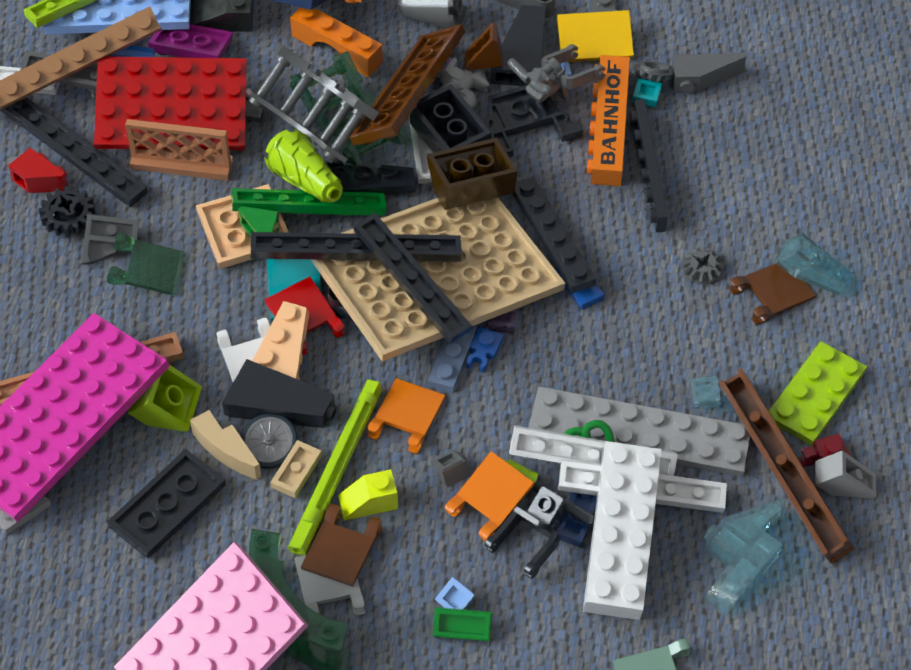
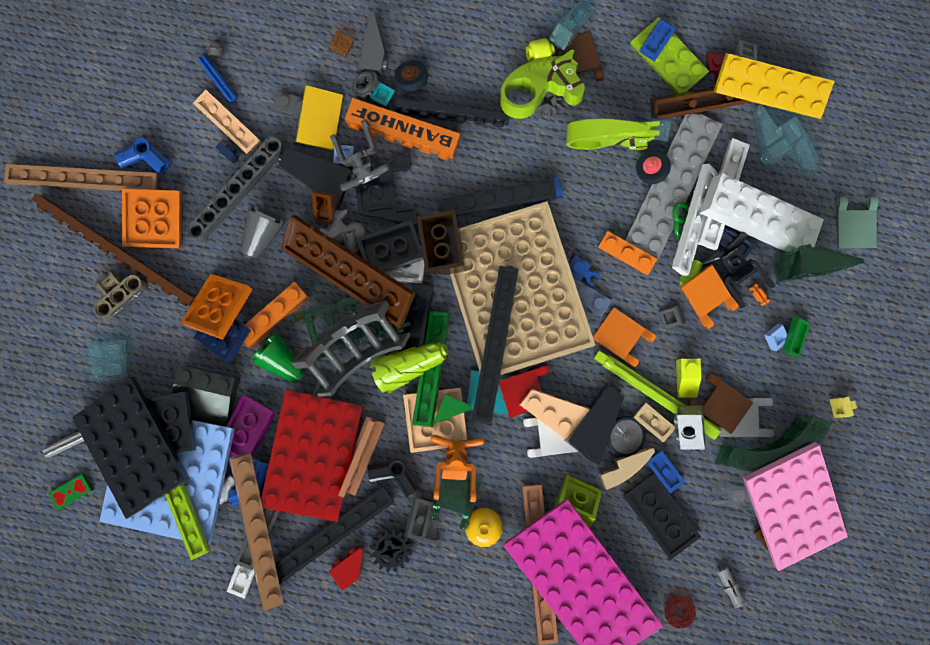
camera: 75 degrees left, 30 degrees up
(41, 543) = (688, 614): none -> clear red gear
(81, 609) = (731, 587): none -> light grey pin
(114, 302) = (484, 527): none -> yellow cylinder
(170, 197) = (384, 471): none -> black piece
(190, 247) = (455, 464): none -> orange piece
(229, 495) = (665, 471): none -> blue plate
(290, 36) = (278, 359): none -> green cone
(298, 503) = (693, 417): none -> brick
(412, 278) = (537, 309): black plate -> none
(513, 567) = (759, 294): none -> orange piece
(524, 393) = (627, 252): none -> orange plate
(562, 583) = (811, 262): none -> clear green slope
(652, 396) = (653, 167): none -> black wheel
(675, 322) = (602, 133): none -> lime animal
(681, 113) = (411, 76): none -> black wheel
(696, 41) = (341, 44): none -> clear orange plate
(723, 237) = (541, 76): none -> lime animal
(764, 239) = (539, 49): none -> neon yellow head
(814, 507) = (773, 86): none -> yellow plate
(829, 361) = (657, 40): none -> blue plate

